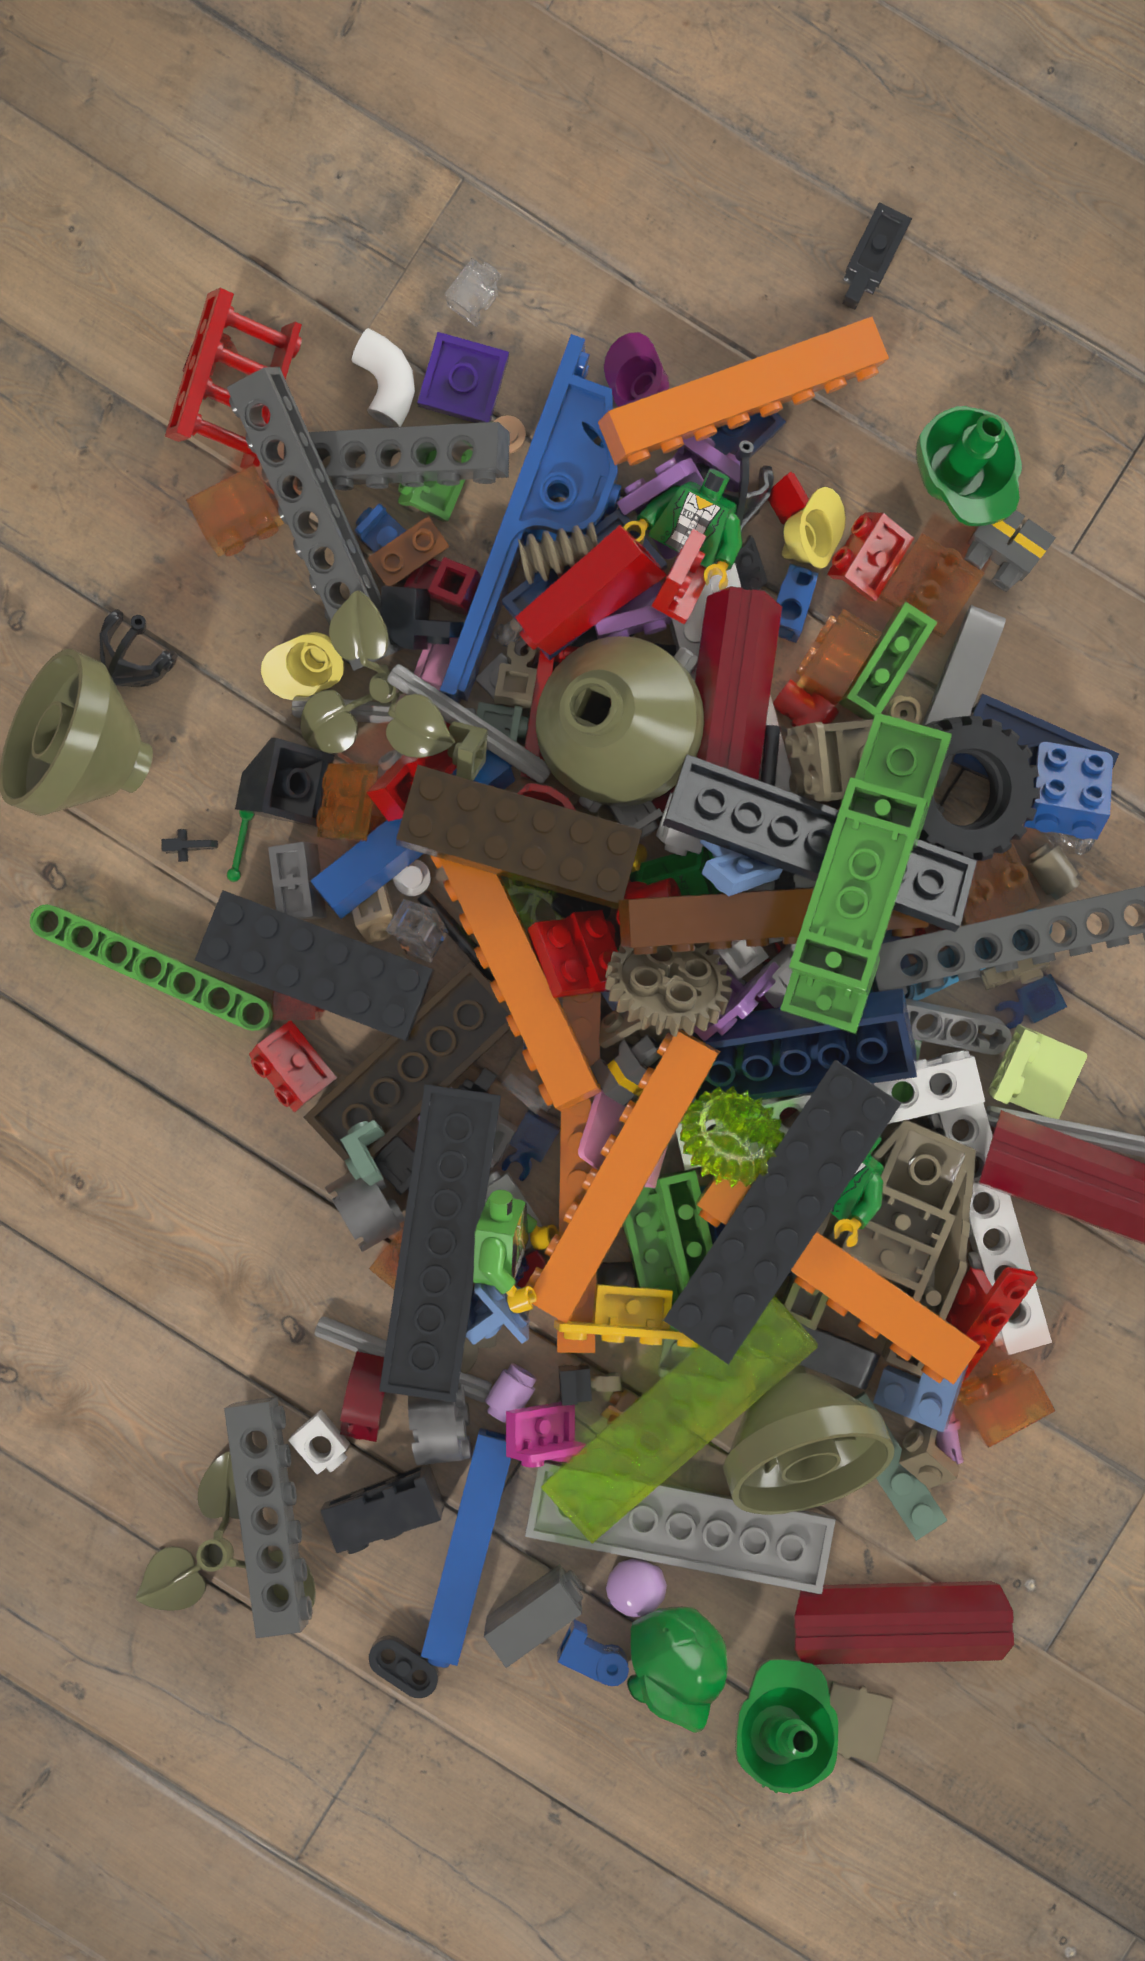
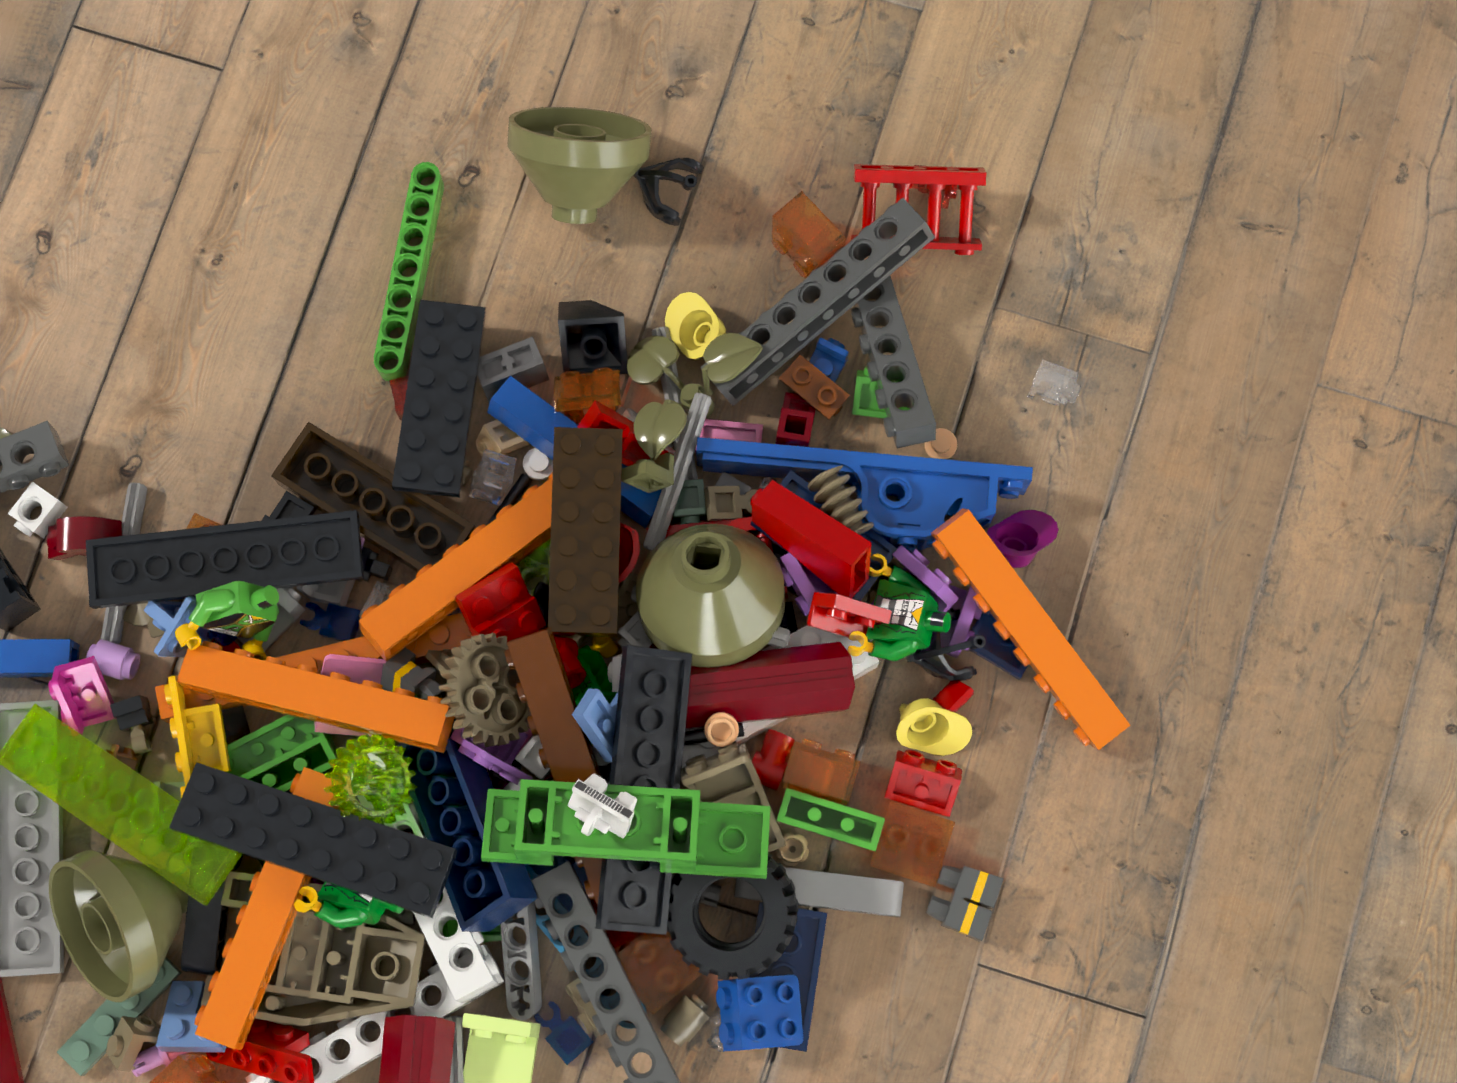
camera: 75 degrees right, 10 degrees down
(182, 845) = (519, 269): black piece -> none
(234, 873) = (506, 317): green hinge -> none
(291, 1066) = (353, 405): red bracket -> none
(360, 1160) = (281, 474): sand green bracket -> none
(365, 1210) = (245, 493): flat silver brick -> none
(392, 375) = (964, 335): white cylinder -> none
(408, 622) = (757, 399): black brick -> none
(439, 1429) = (66, 606): flat silver brick -> none
(463, 379) = (977, 395): dark purple plate -> none
(750, 566) = (884, 678): black piece -> none
(771, 747) = (721, 729): none -> light nougat plate
(795, 600) = (863, 724): blue leg -> none
(850, 887) = (599, 810): none -> white hips
(874, 253) = (1191, 716): black hinge -> none
(971, 464) = (1024, 846): green piece -> none

